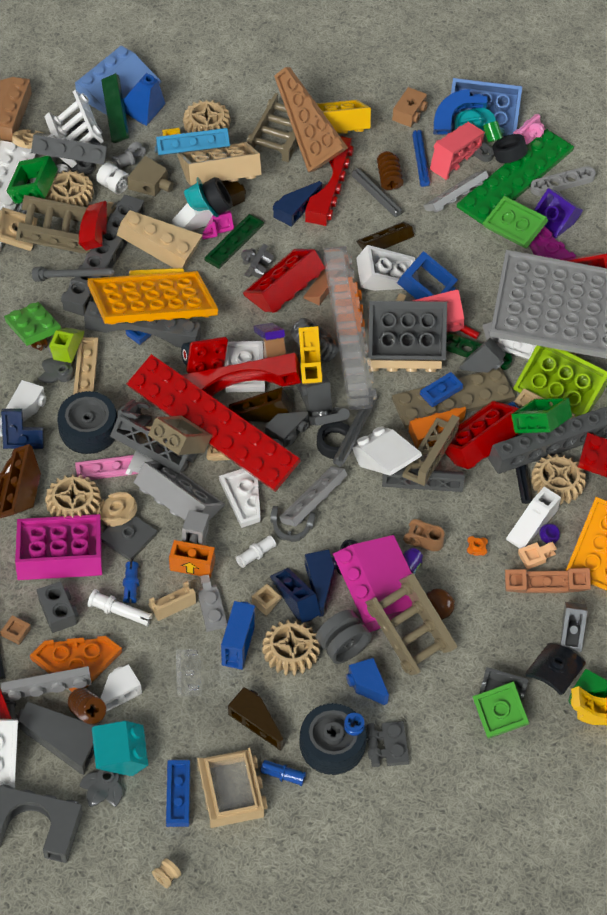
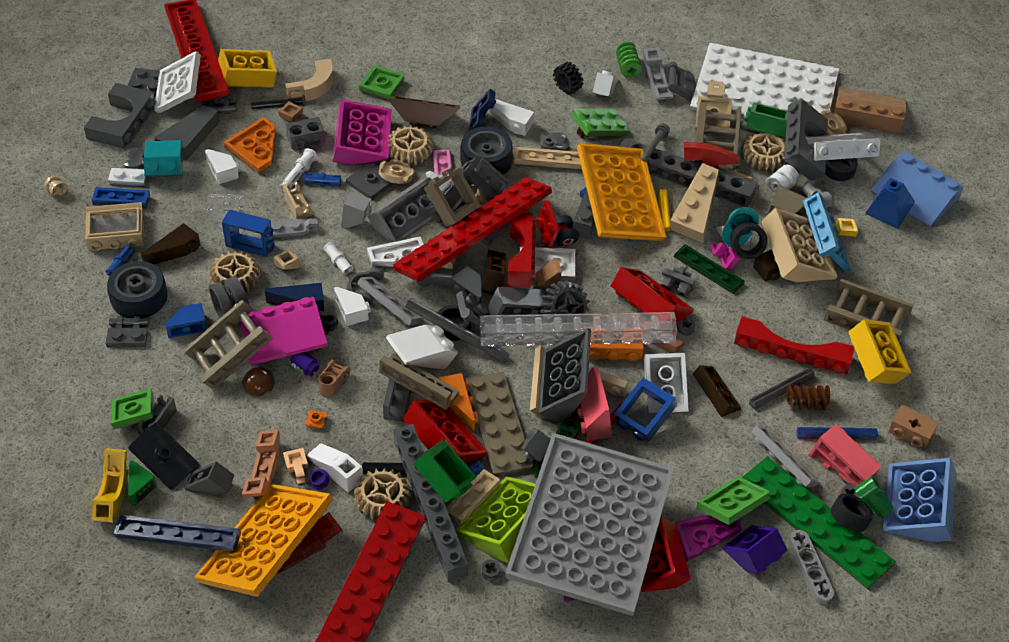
camera: 95 degrees right, 5 degrees down
(46, 683) = (228, 124): light grey plate -> none
(65, 344) = (570, 135): lime slope -> none
(86, 706) = (201, 140): reddish brown piece -> none
(115, 108) = (874, 181): dark green tile -> none
(137, 795) = (125, 176): none -> white plate
(192, 558) = (331, 212): orange brick -> none
(196, 116) = (872, 254): tan gear -> none
(269, 331) = (573, 268): dark purple tile -> none
(294, 204) = (754, 308): dark blue slope -> none
(297, 595) = (285, 276): dark blue slope -> none
(310, 355) = (523, 290): yellow arch -> none
(312, 129) = (857, 316): medium nougat wing -> none
(327, 529) = (351, 306): none -> white slope
(351, 718) = (135, 297): blue bush -> none
(441, 389) = (498, 403): blue plate -> none
(453, 104) = (901, 453): blue arch -> none
(475, 116) = (896, 485): teal piece -> none
(531, 129) = (887, 540): bright pink hips -> none

